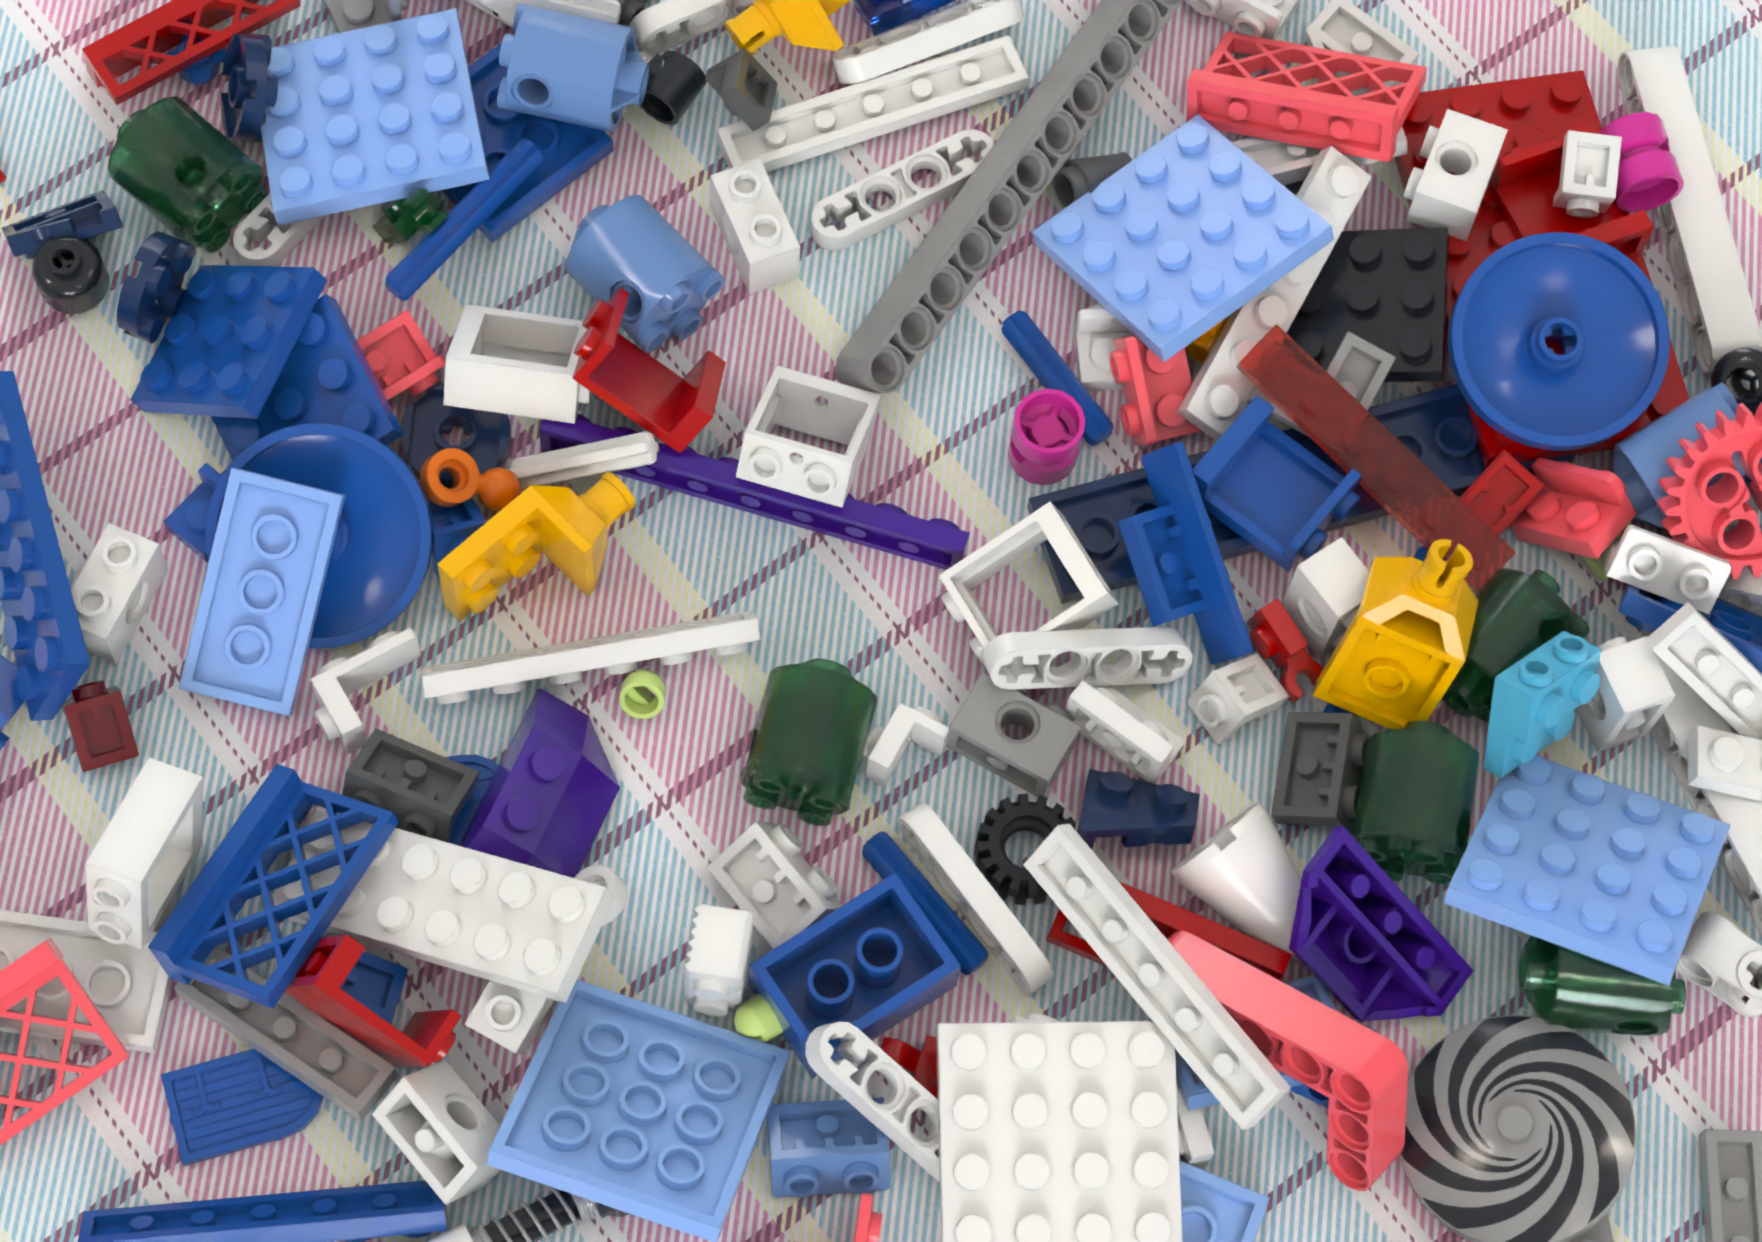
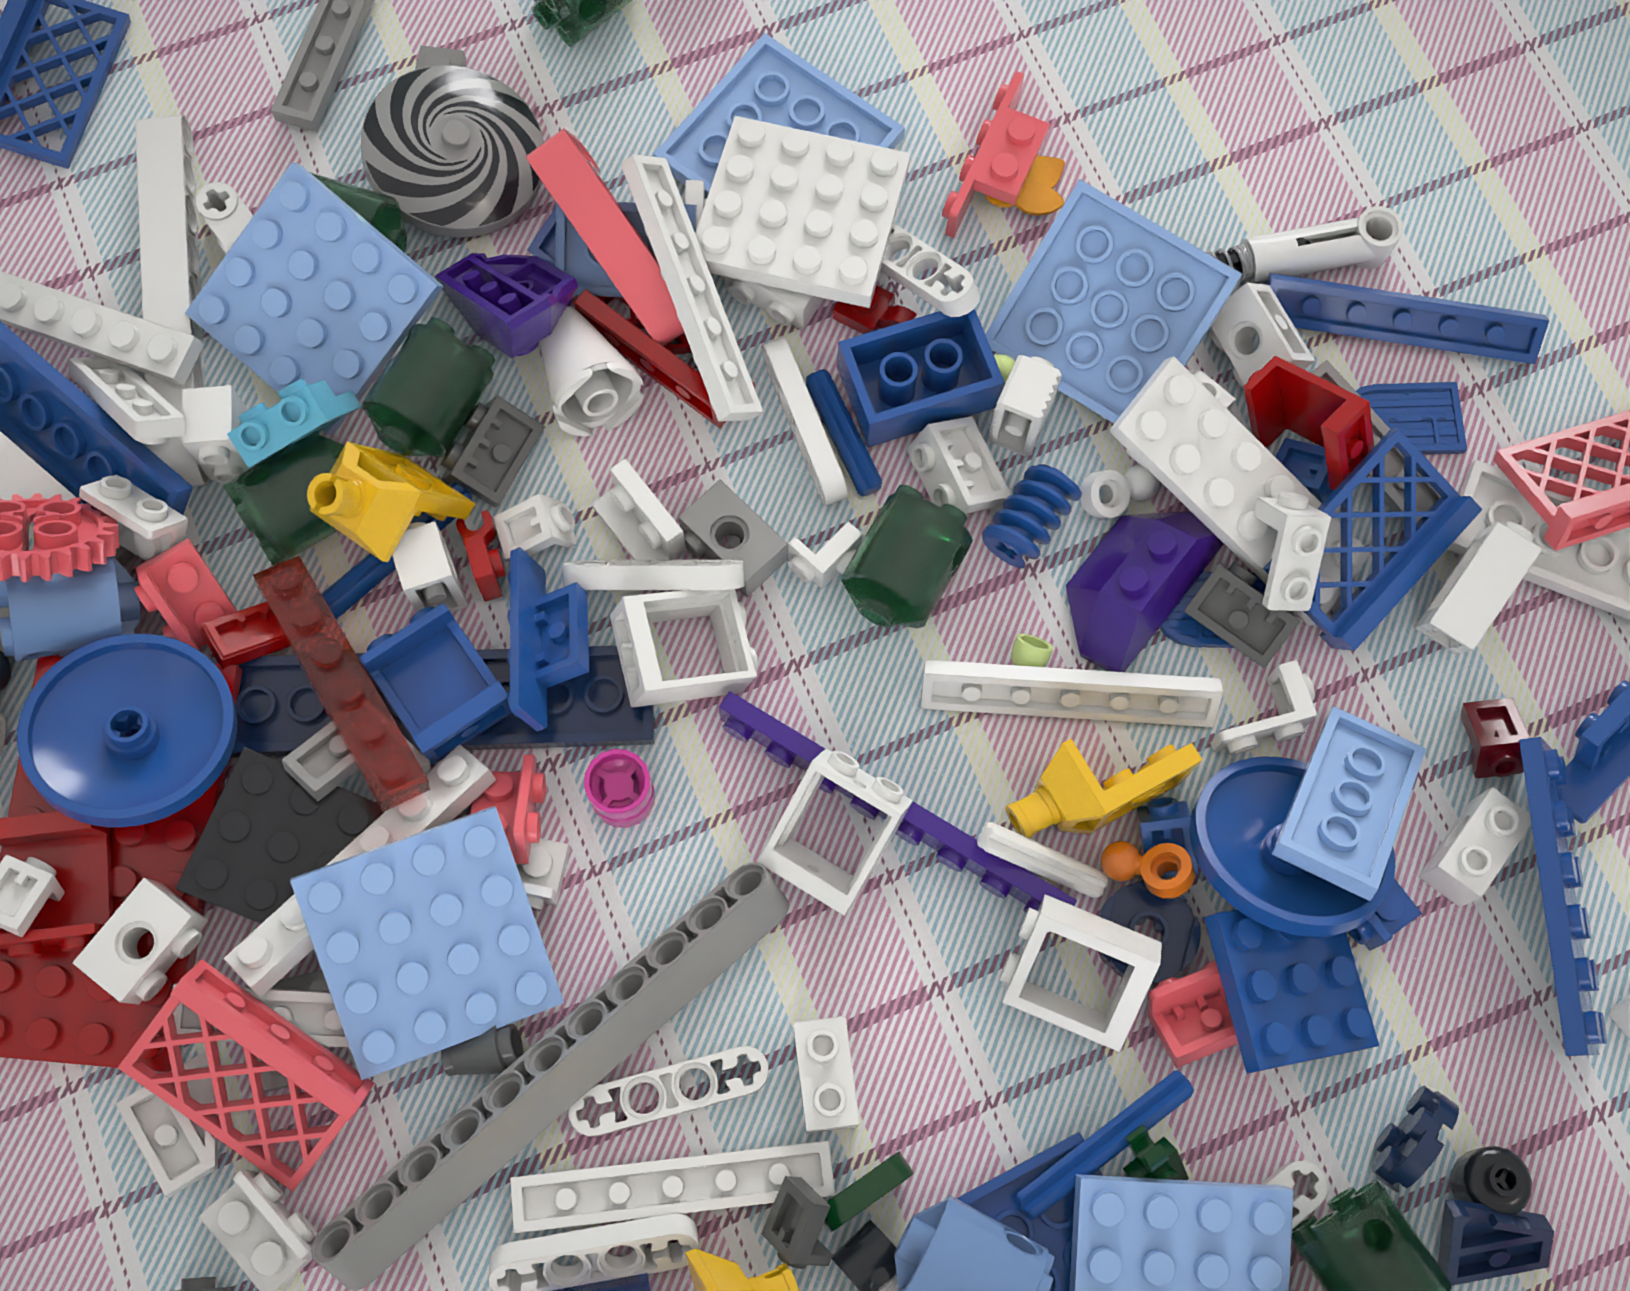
camera: 160 degrees left, 5 degrees up
(228, 340) = (1349, 1062): blue plate -> none
(369, 837) = (1296, 551): none -> white bracket
(639, 384) = (971, 916): red panel -> none
(650, 260) = (948, 1042): medium blue cylinder -> none
(673, 845) = (1028, 513): none -> blue piece
(687, 142) = (867, 1190): none -> dark green beam
(825, 1150) = (990, 266): medium blue bracket -> none
(995, 831) = (758, 474): black tyre -> none
(1055, 373) = (588, 858): blue axle -> none
(1136, 811) = (659, 449): dark blue wing -> none

